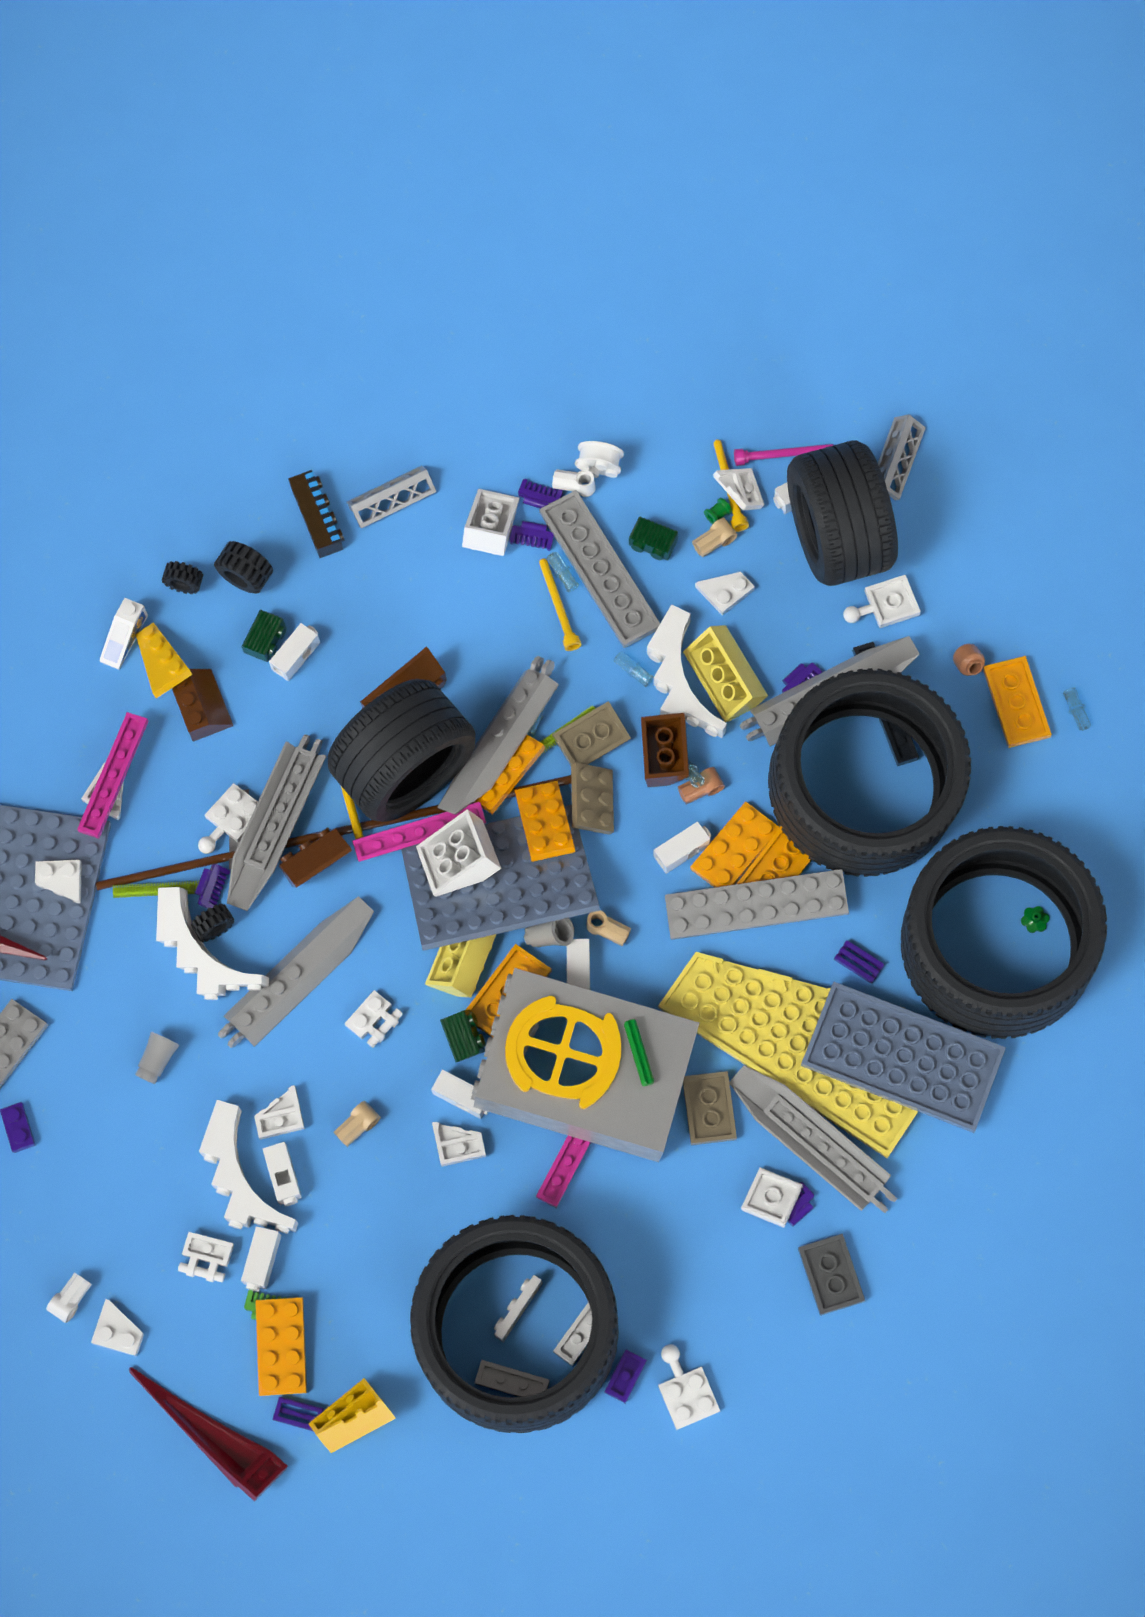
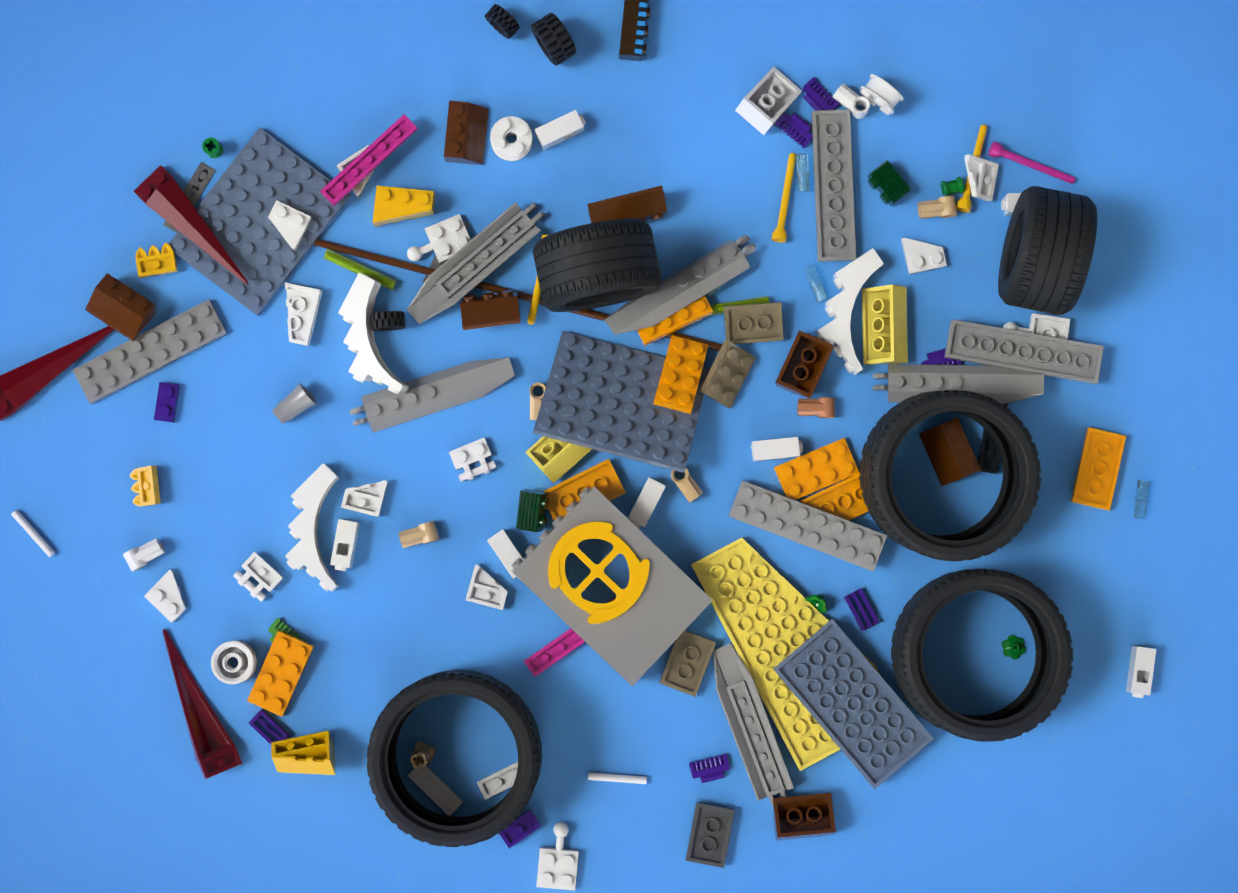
camera: 20 degrees right, 15 degrees up
(38, 1224) = (146, 486): none -> yellow plate
(118, 962) = (302, 312): none -> white wing
(123, 632) = (434, 43): slope -> none
(161, 661) = (451, 85): yellow wing -> none
(169, 802) = (400, 204): none -> yellow wedge
(208, 882) = (400, 285): dark purple piece -> none
(235, 1370) = (221, 662): none -> white wheel
(249, 671) = (511, 126): none -> white wheel
(260, 1259) = (297, 600): white brick -> none
(264, 635) = (542, 103): dark green brick -> none
(388, 489) = (704, 30): light grey fence -> none
(407, 834) = (579, 332): dark pink plate -> none
(409, 925) = (535, 402): none -> tan piece
(458, 855) = (599, 369): white slope -> none
(479, 1349) = (422, 755): none -> tan piece
(517, 1307) = (466, 736): white plate -> none
(550, 933) = (643, 472): light grey plant -> none
(639, 1052) = (653, 603): green axle -> none
(694, 775) = (815, 399): clear light blue axle -> none
(700, 1268) = (617, 778): none -> white bar
(771, 1197) = (697, 754): white tile -> none
(810, 976) = (818, 602): none -> green plant
(859, 760) = (949, 451): none -> reddish brown slope
(876, 626) = (1024, 351): none -> light grey plate
(894, 452) = (1119, 211): light grey fence -> none
(918, 1201) = (803, 816): none -> reddish brown slope
(969, 659) = (1080, 416): nougat head -> none

